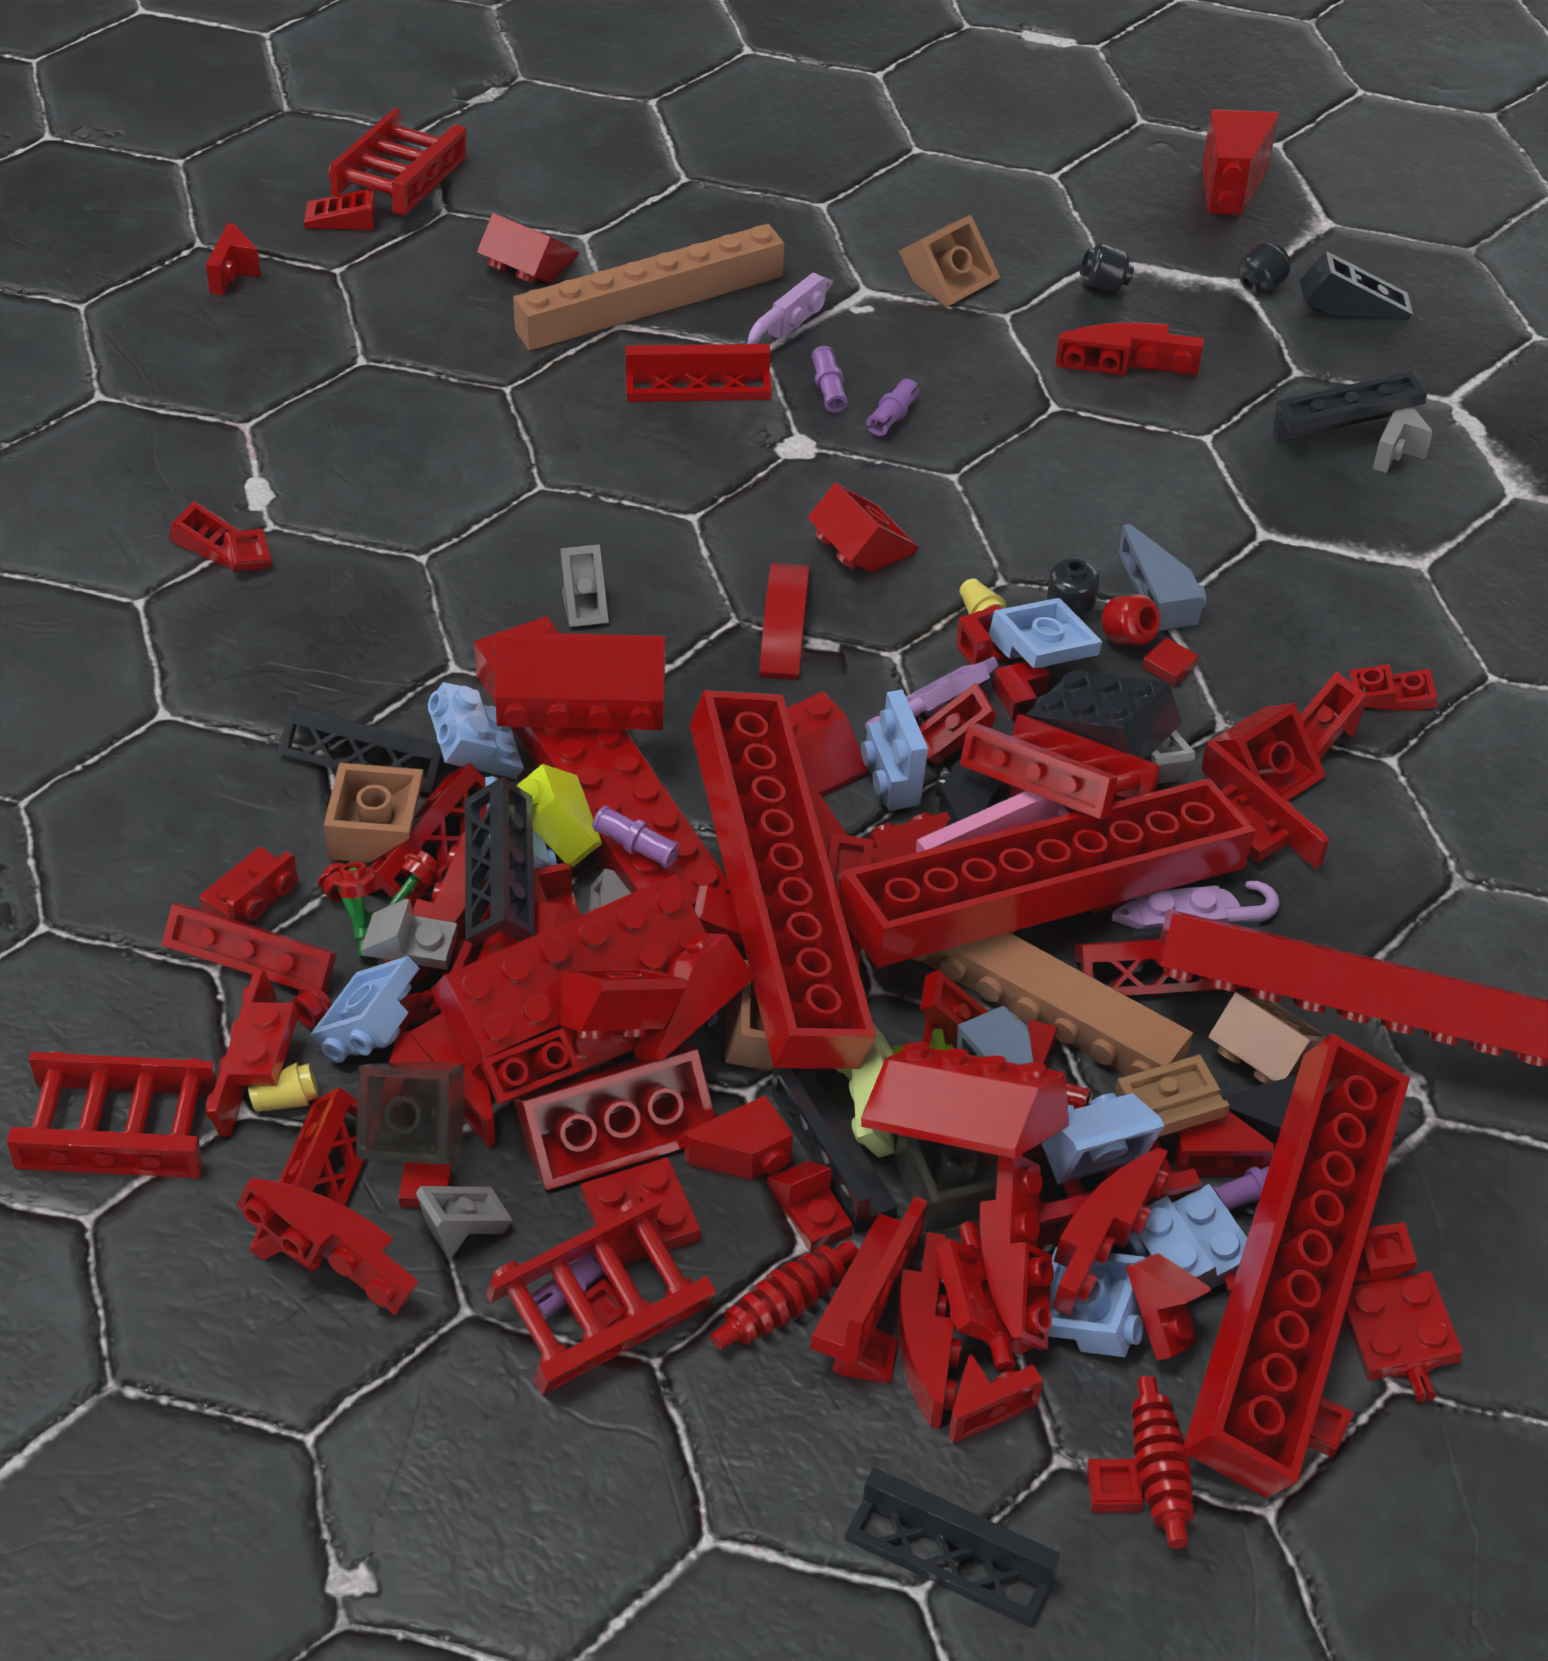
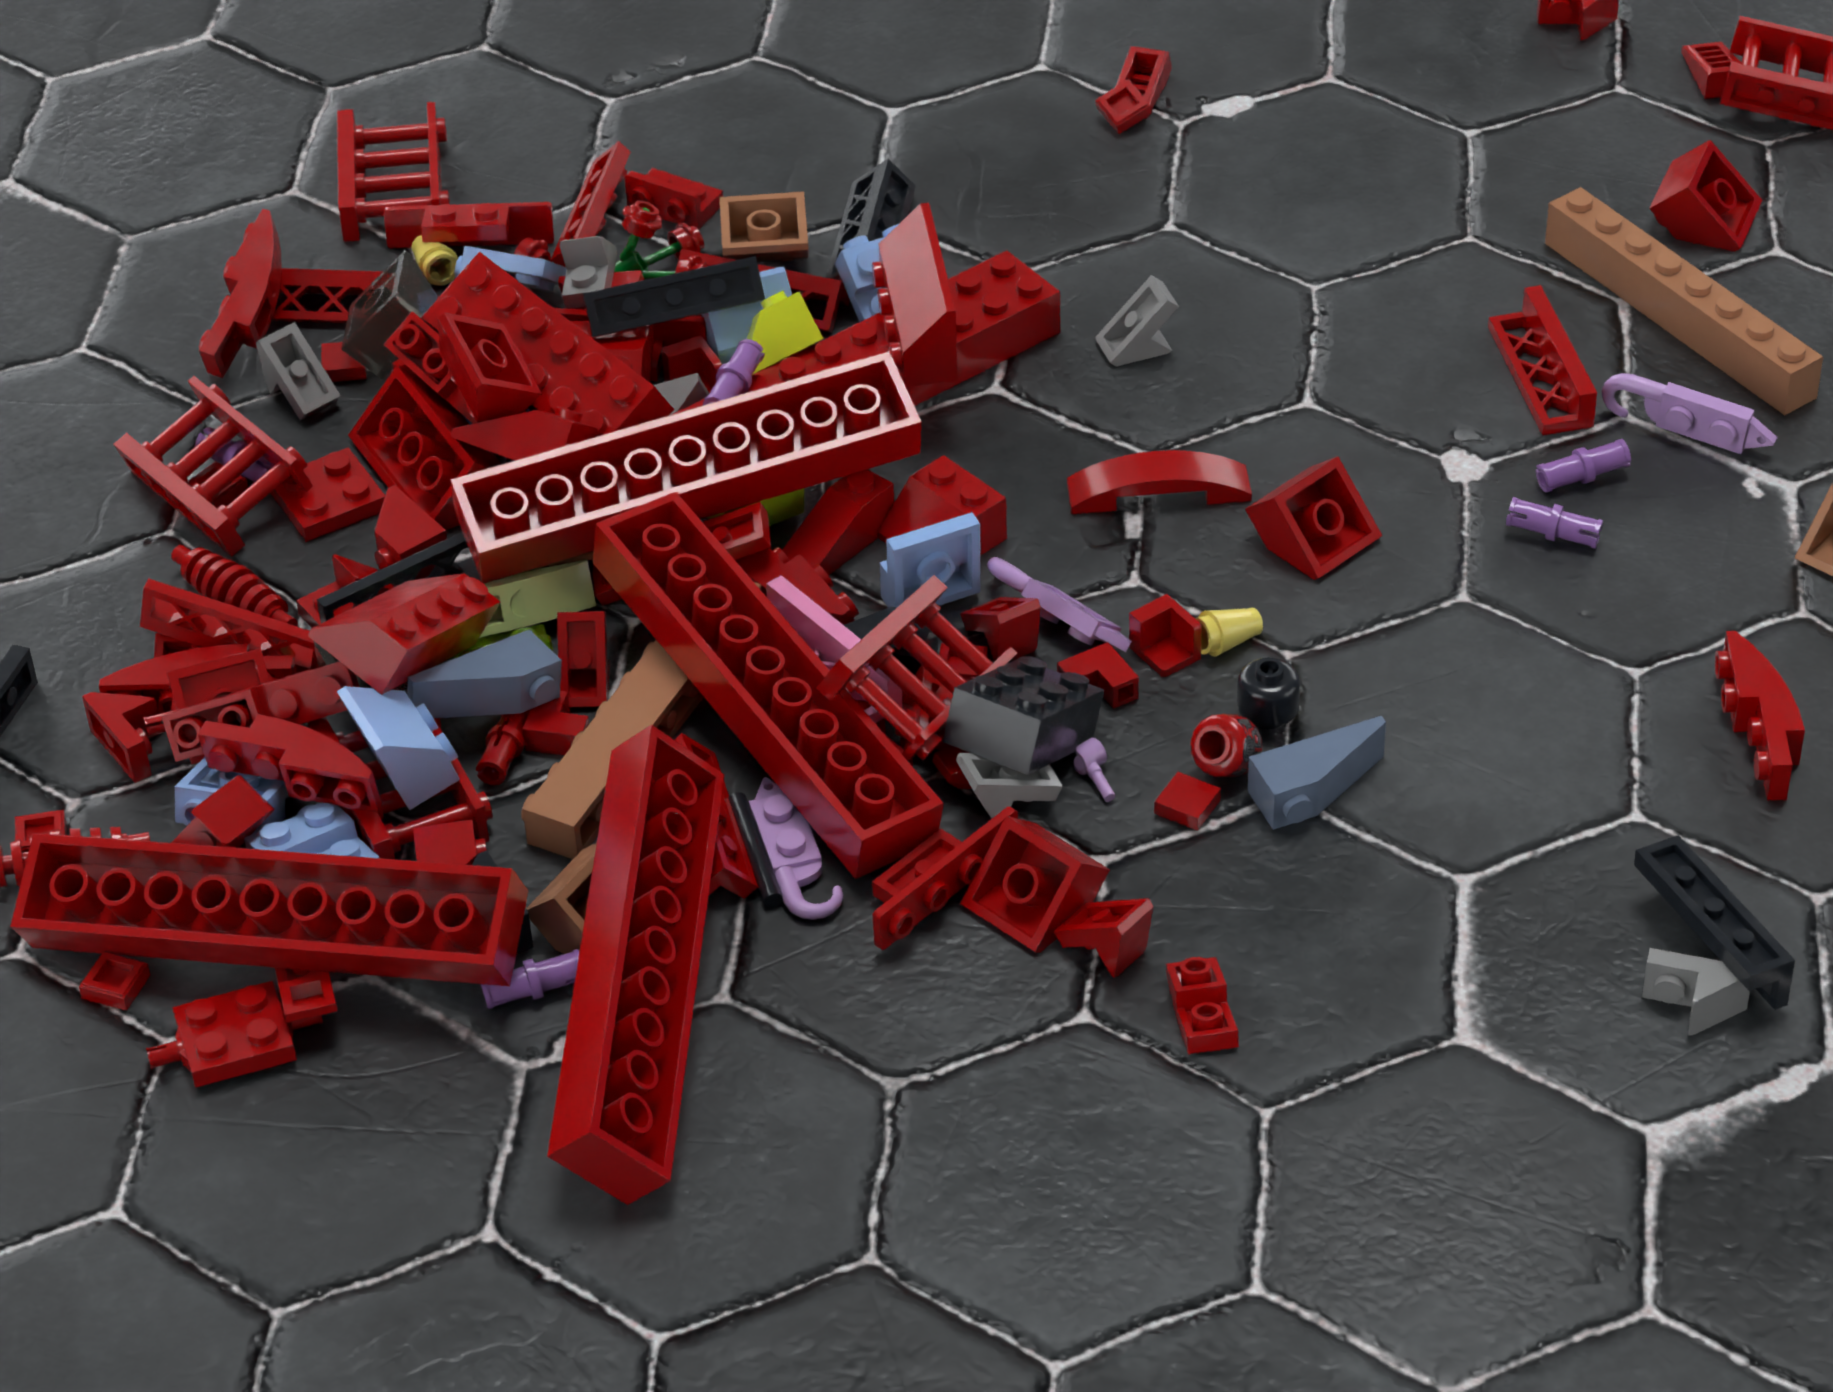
camera: 85 degrees right, 5 degrees down
(1043, 633) = (1168, 668): light blue plate -> none
(1178, 1092) = (466, 801): medium nougat plate -> none

